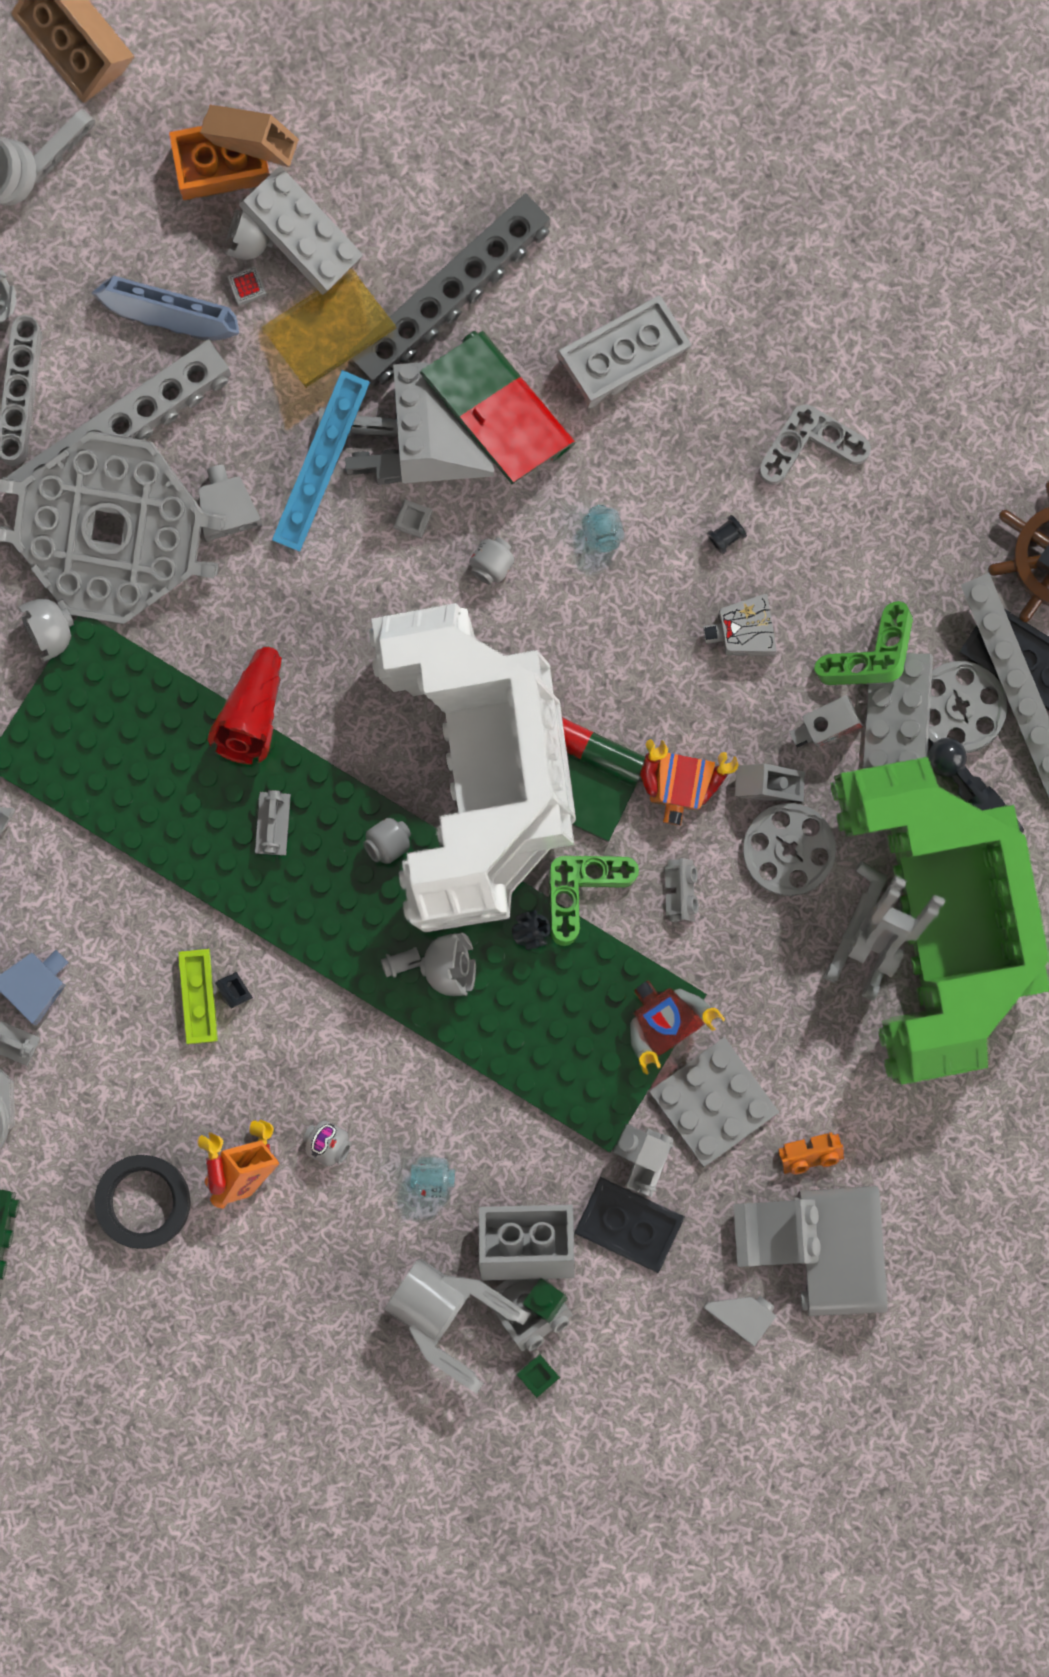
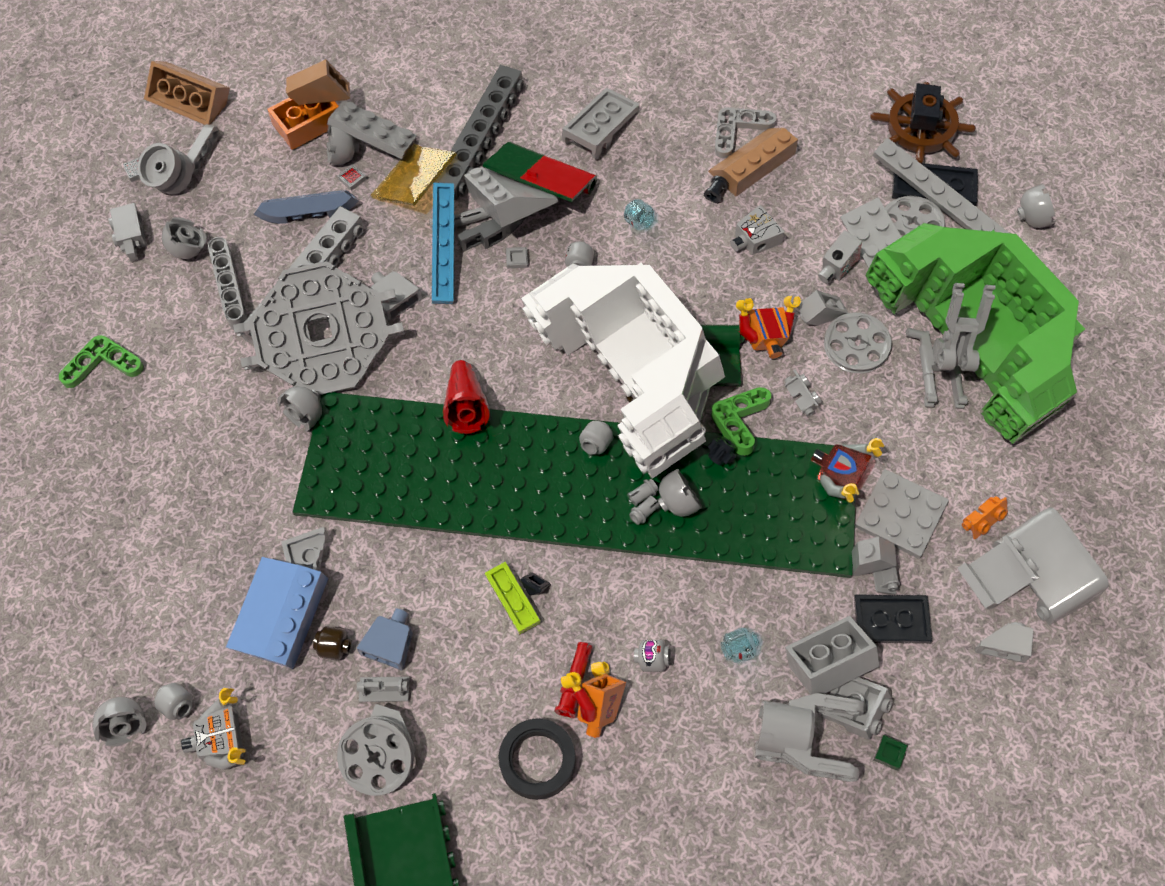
camera: 25 degrees left, 20 degrees down
(229, 1125) = (567, 701): none -> red pin
(272, 823) = (512, 460): light grey hinge -> none
(410, 938) = (642, 492): none -> light grey pin
(545, 1300) = (868, 690): dark green plate -> none
(803, 508) = (756, 159): none -> medium nougat slope
(881, 657) = (850, 215): bright green beam -> none

